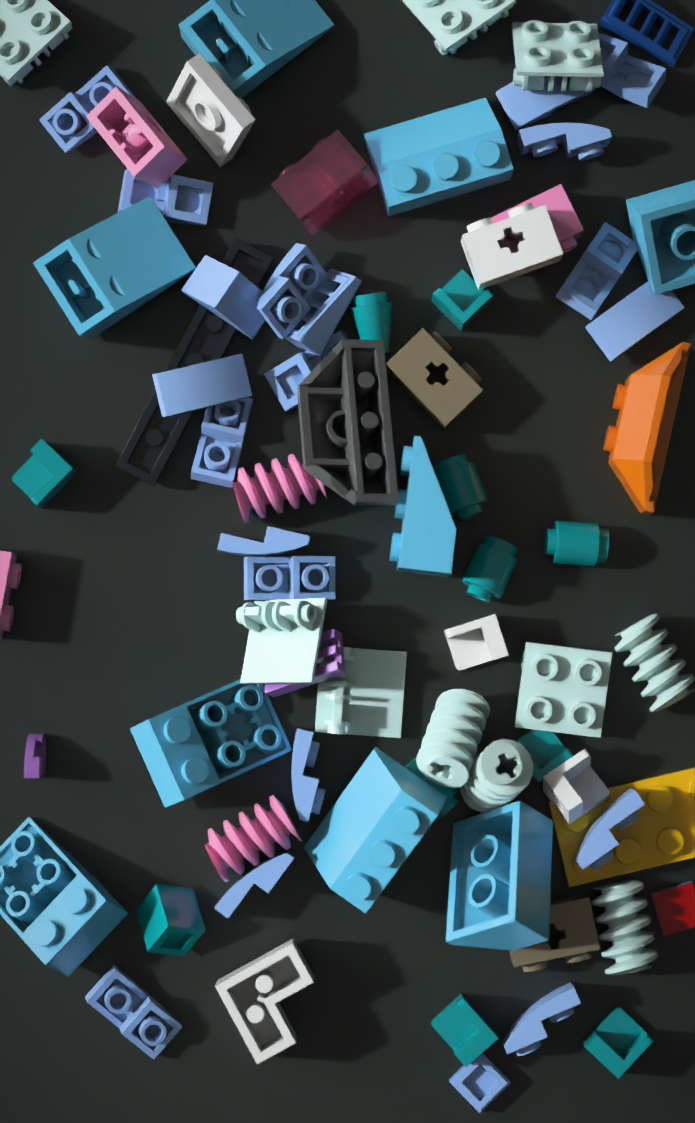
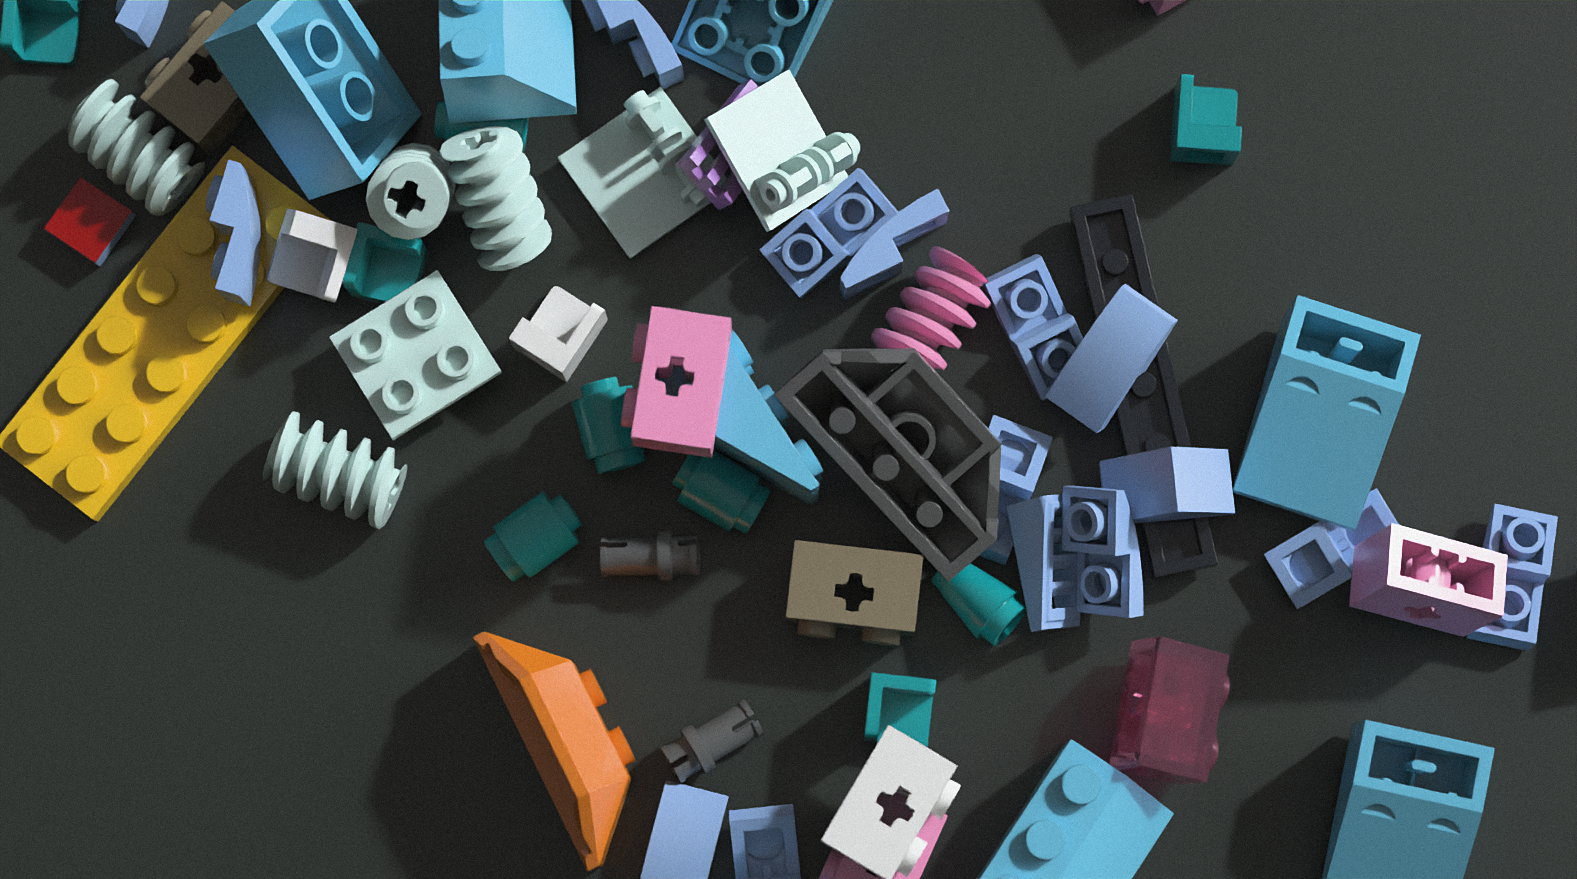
camera: 145 degrees right, 5 degrees down
(210, 109) = (1372, 683): white plate -> none
(457, 520) = (684, 341): none -> bright pink brick
(523, 483) = (650, 555): none -> dark grey pin
(571, 362) = (711, 741): none -> dark grey pin

